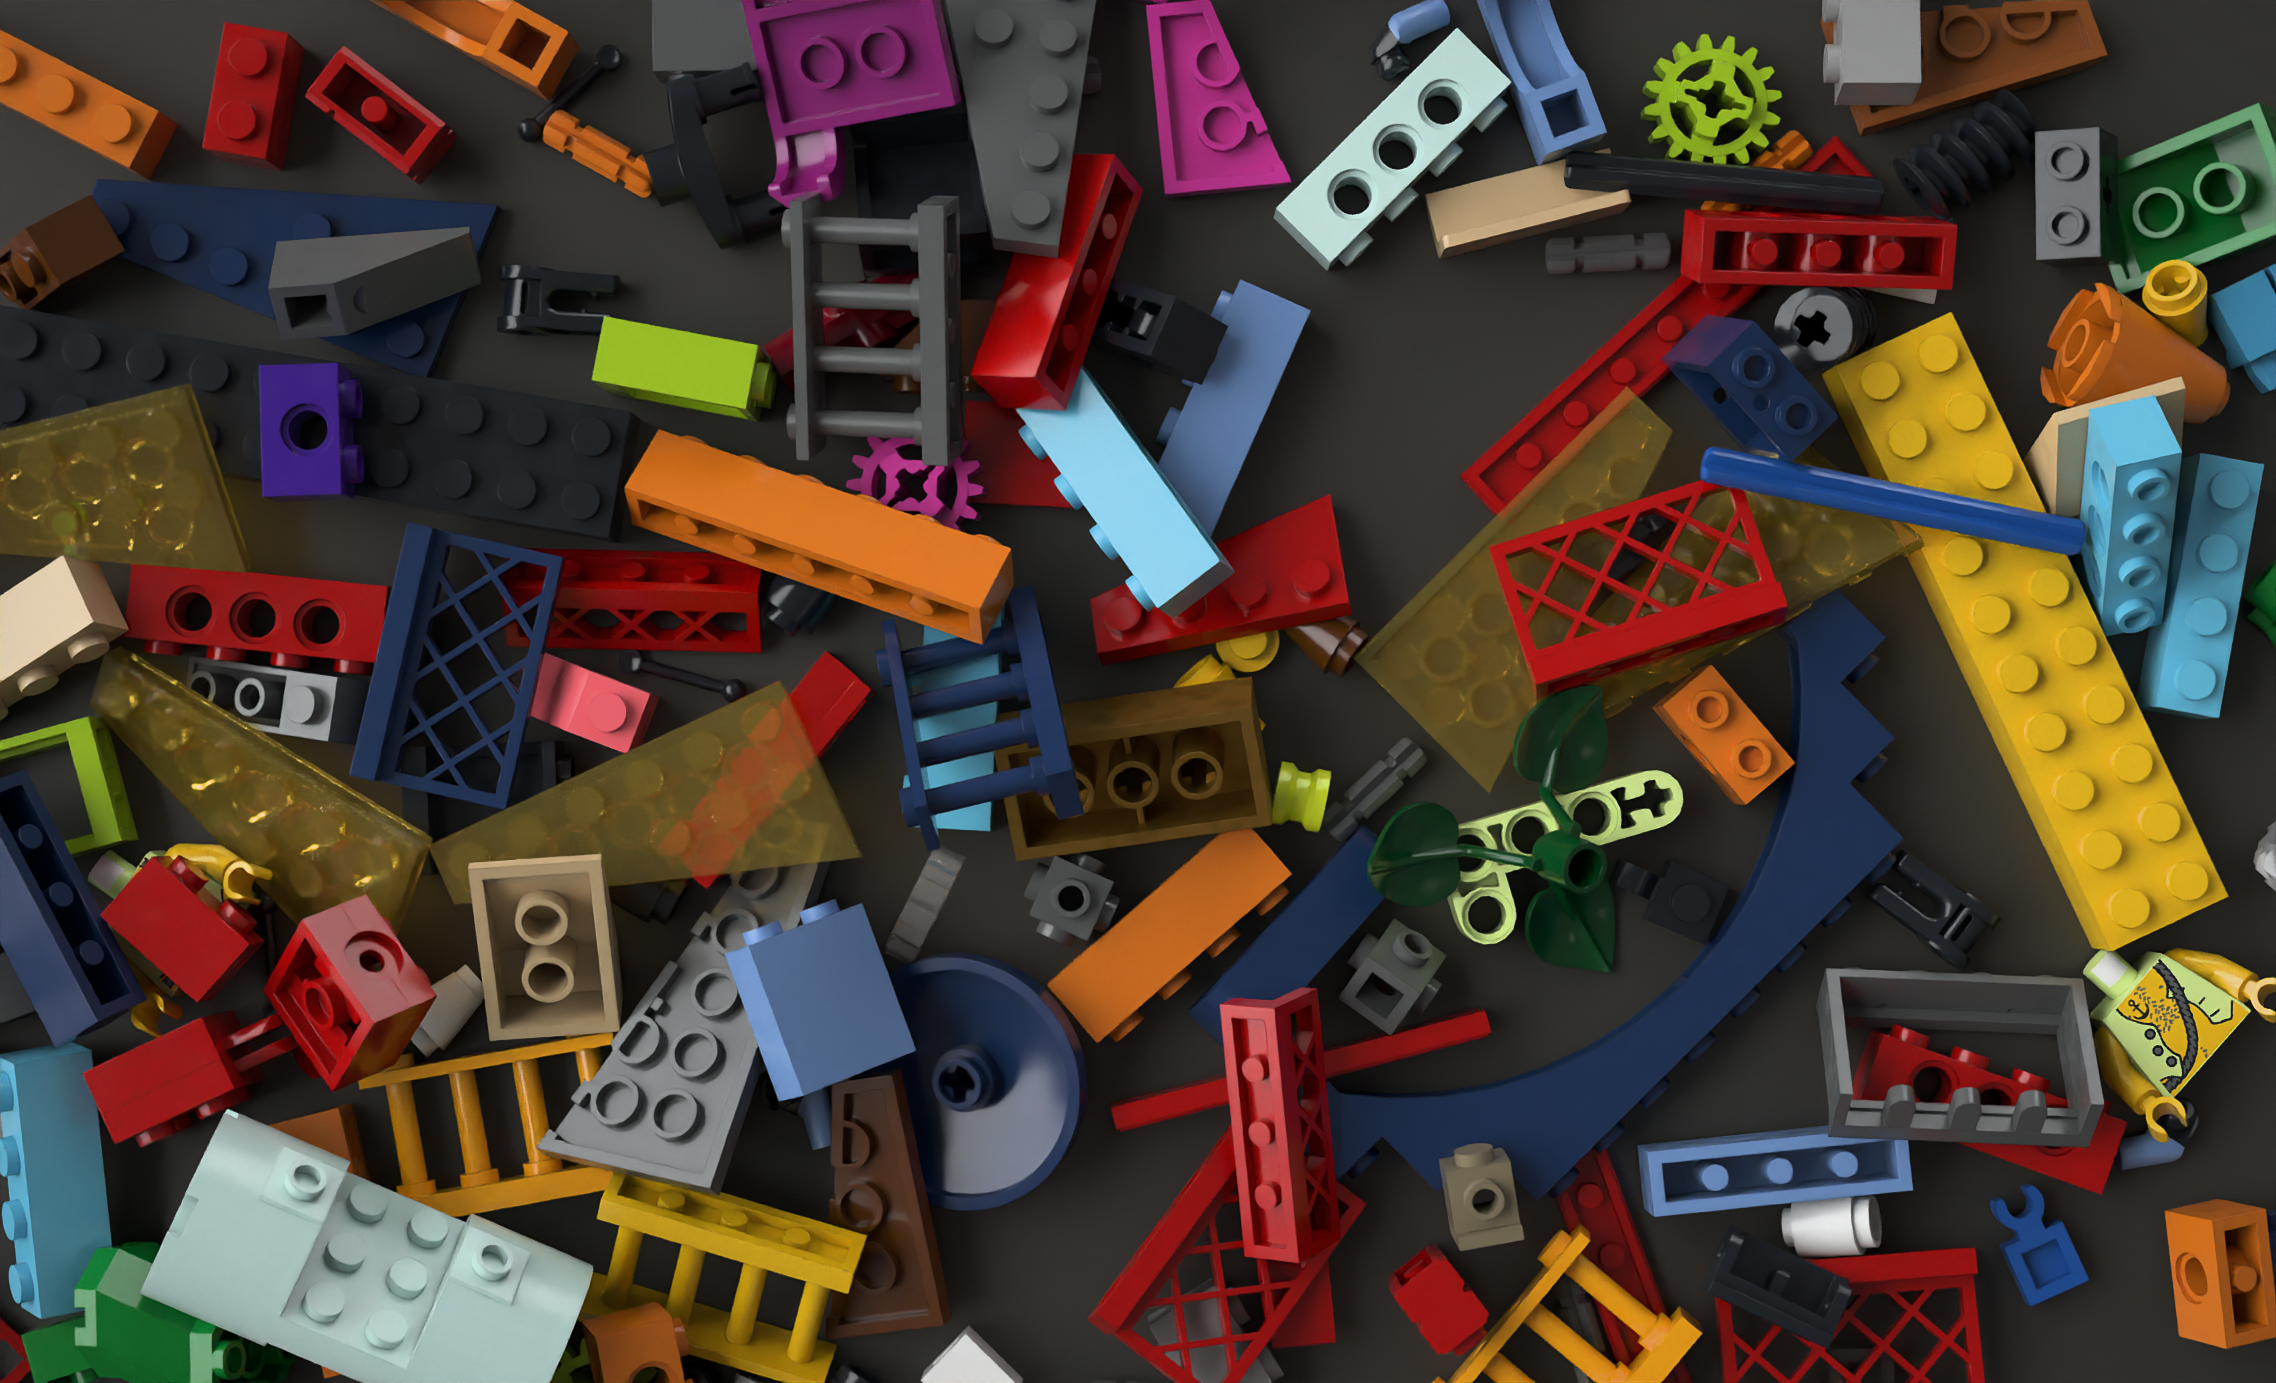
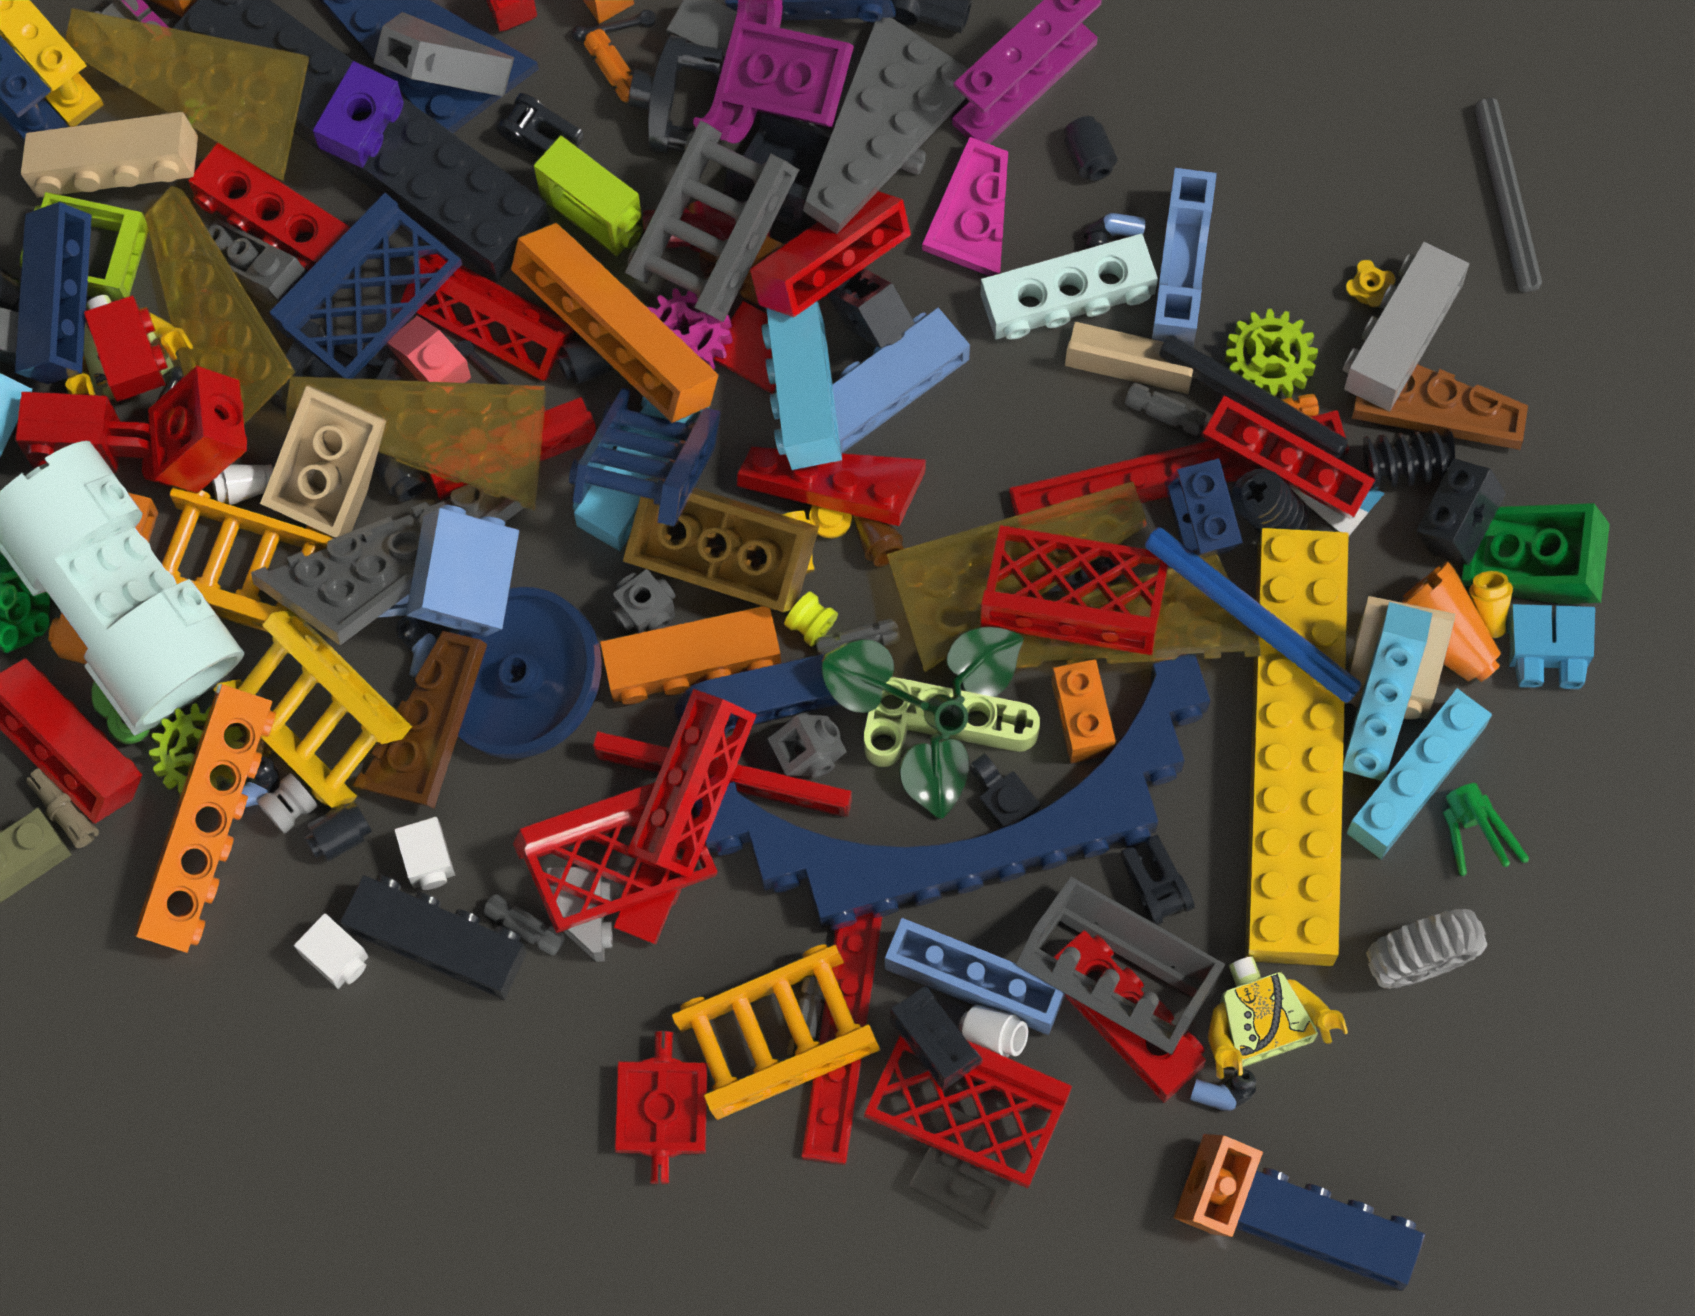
camera: 30 degrees right, 15 degrees down
(924, 904) = (557, 564): clear beam -> none
(1439, 1301) = (728, 944): red brick -> none
(1486, 1222) = (790, 906): dark tan brick -> none
(2040, 1254) = (1112, 1122): blue plate -> none

